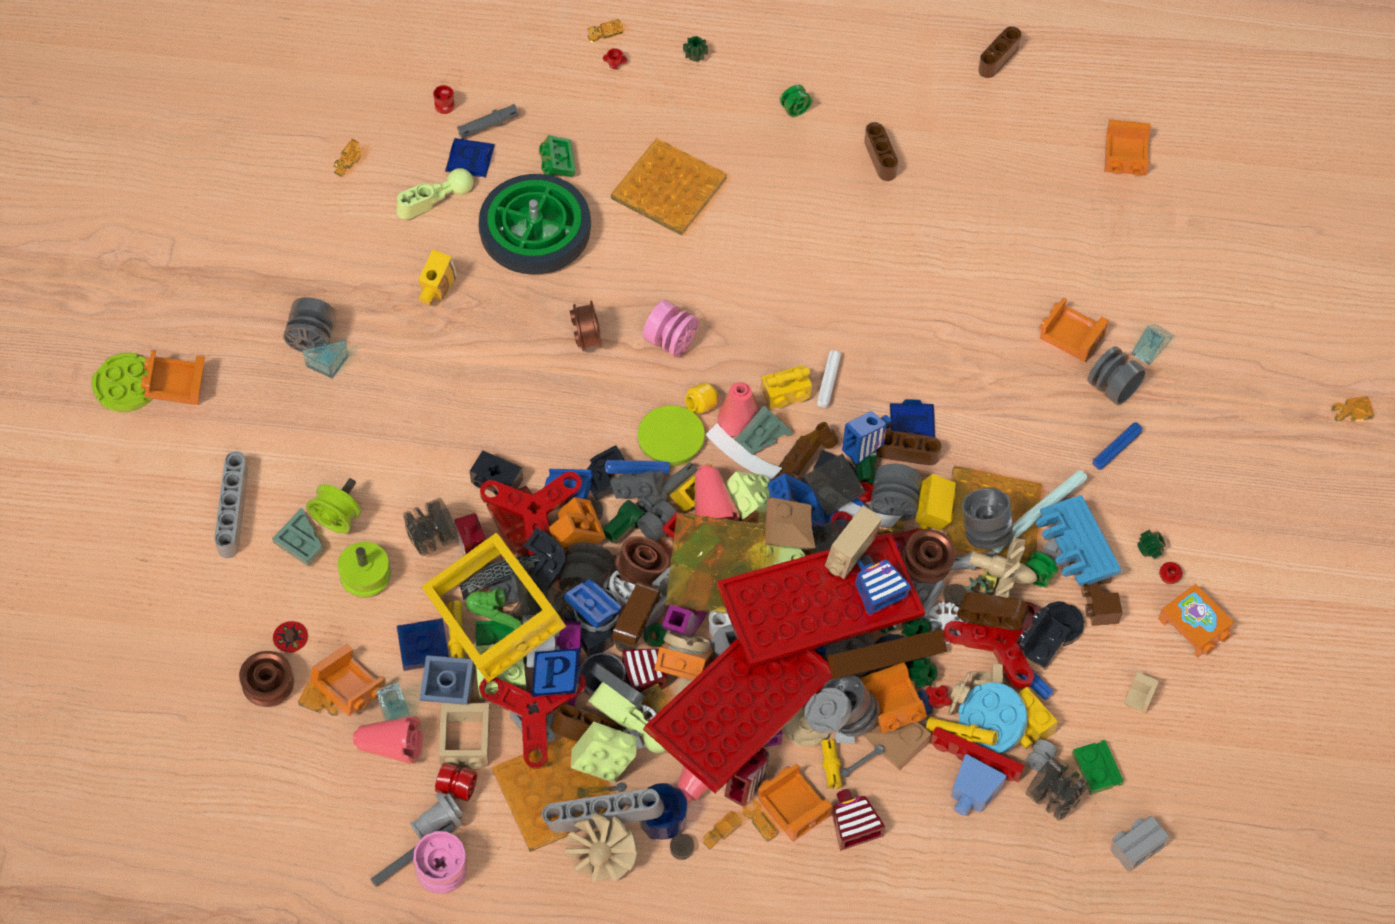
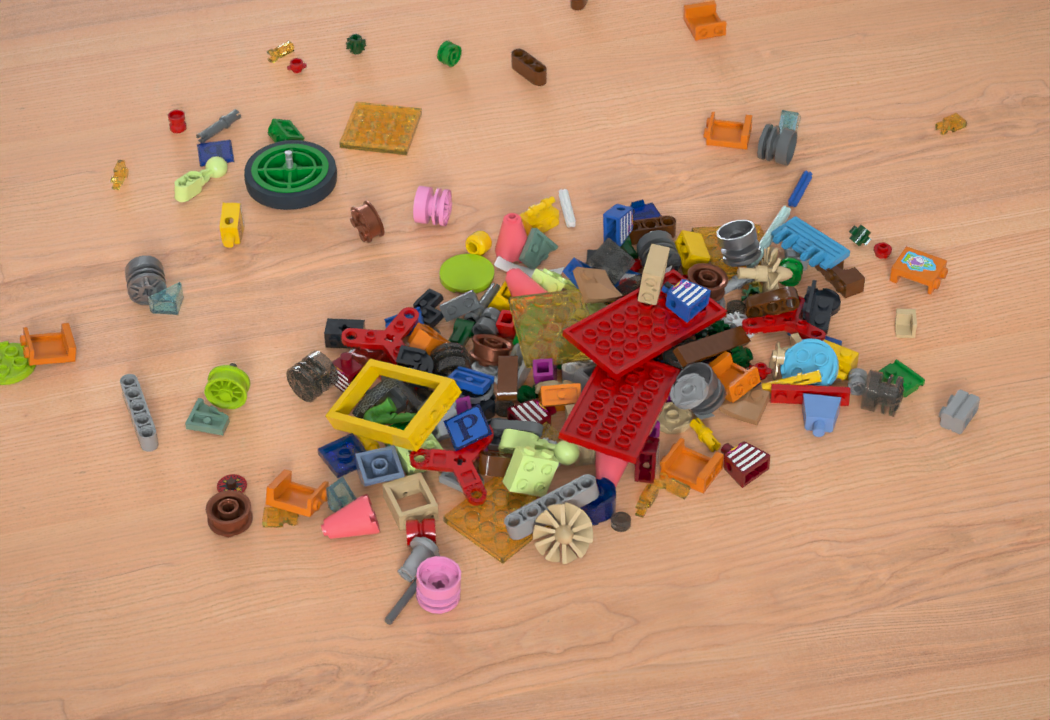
camera: 20 degrees left, 15 degrees down
(364, 569) = (271, 420): lime wheel -> none
(636, 467) = (438, 299): blue axle -> none
(806, 447) = (575, 248): reddish brown plate -> none
(845, 772) = (736, 413): dark grey hinge -> none

